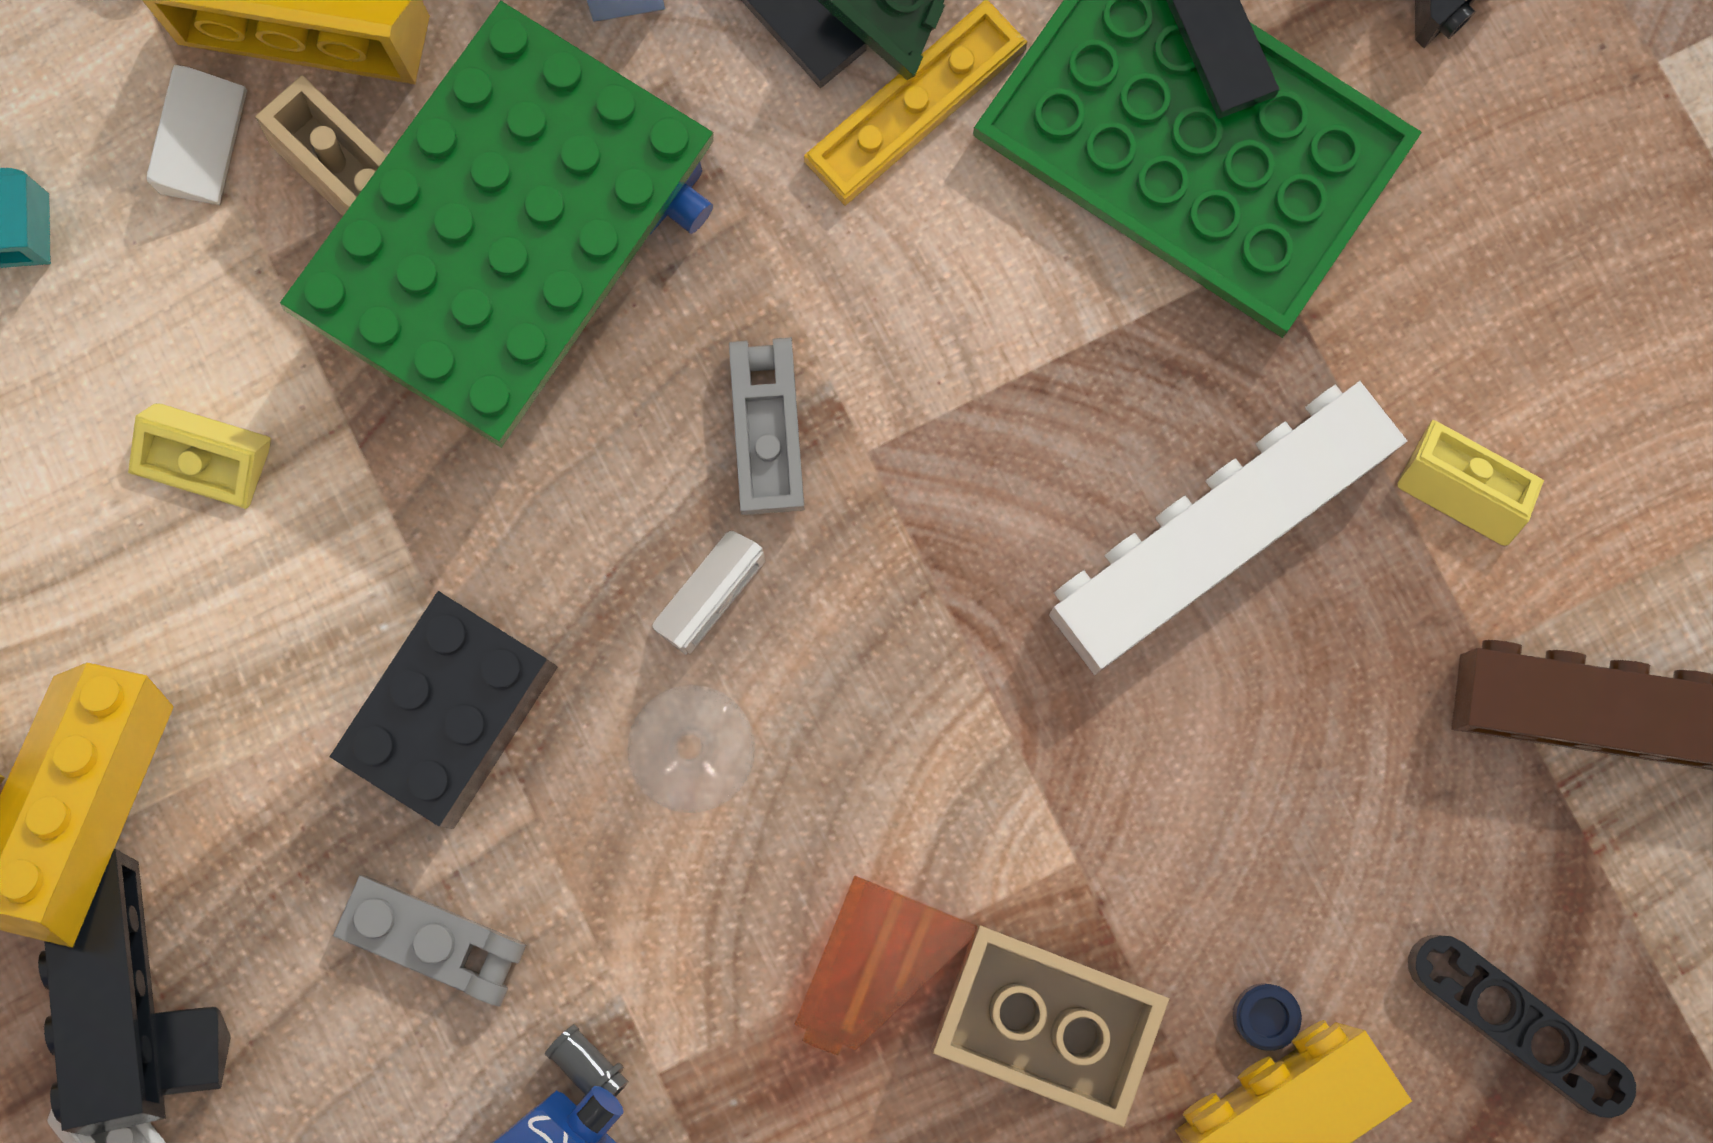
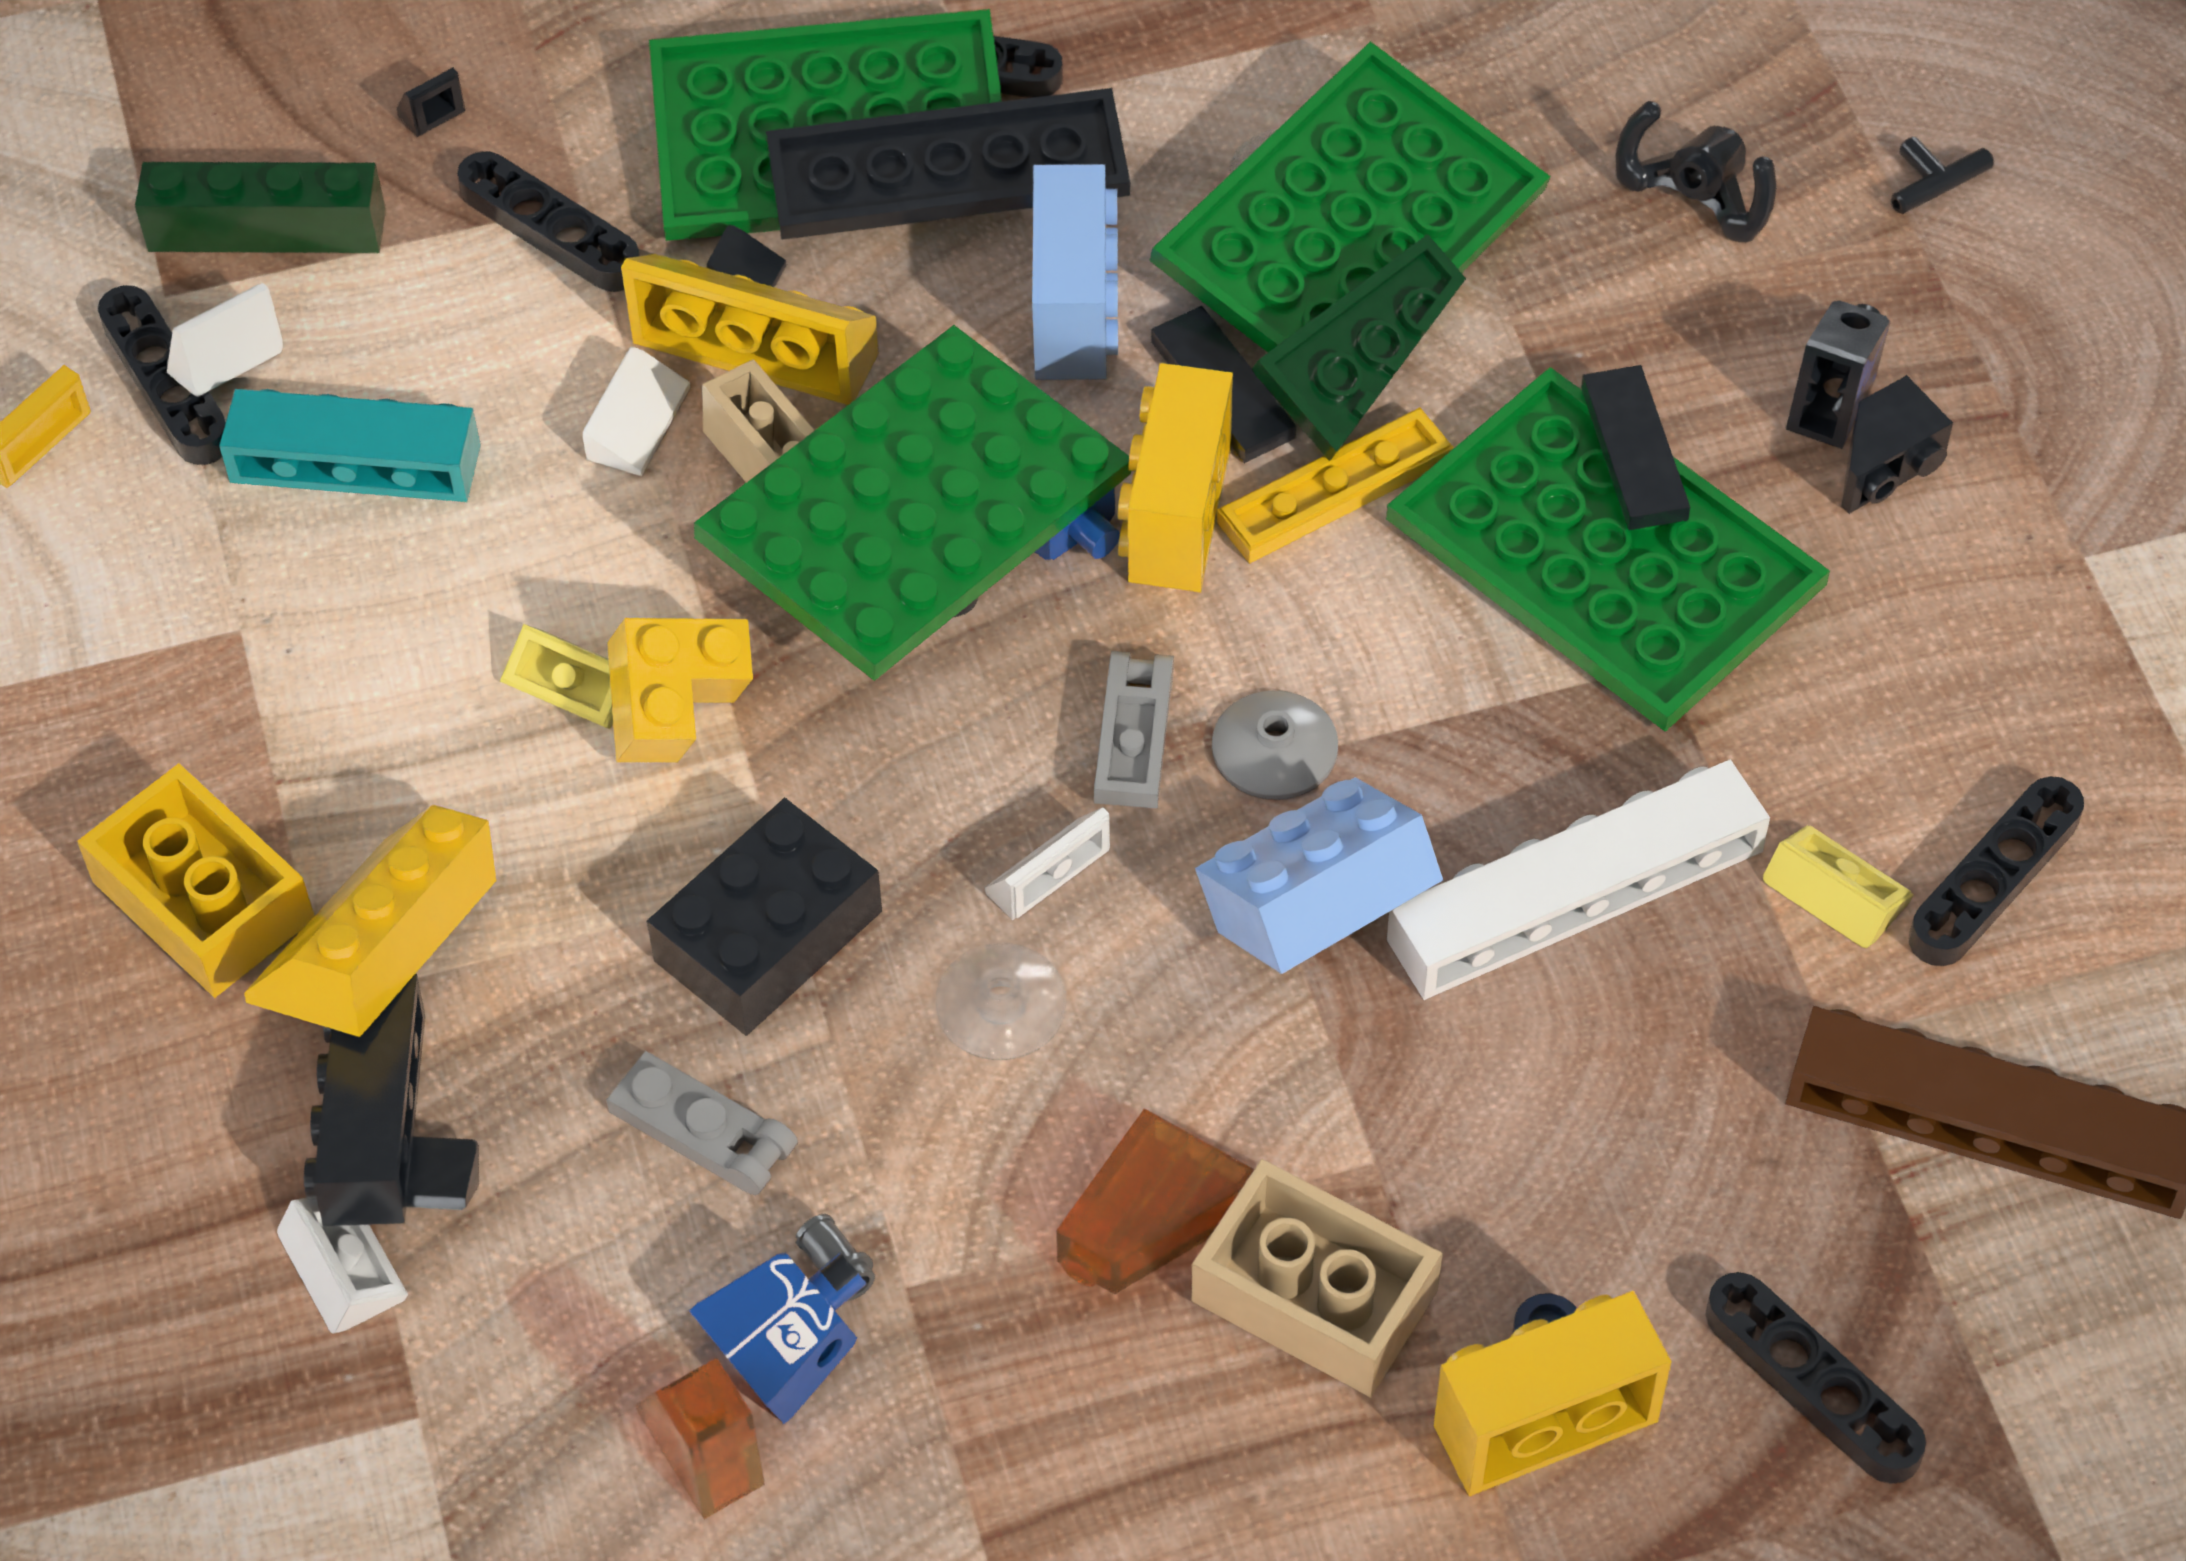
camera: 10 degrees right, 25 degrees down
(280, 464) = (662, 670): none -> yellow brick
(758, 135) = (1176, 477): none -> yellow brick
(897, 443) = (1275, 764): none -> light grey dish
(981, 583) = (1318, 873): none -> light blue brick
(1626, 446) = (1992, 867): none -> black beam

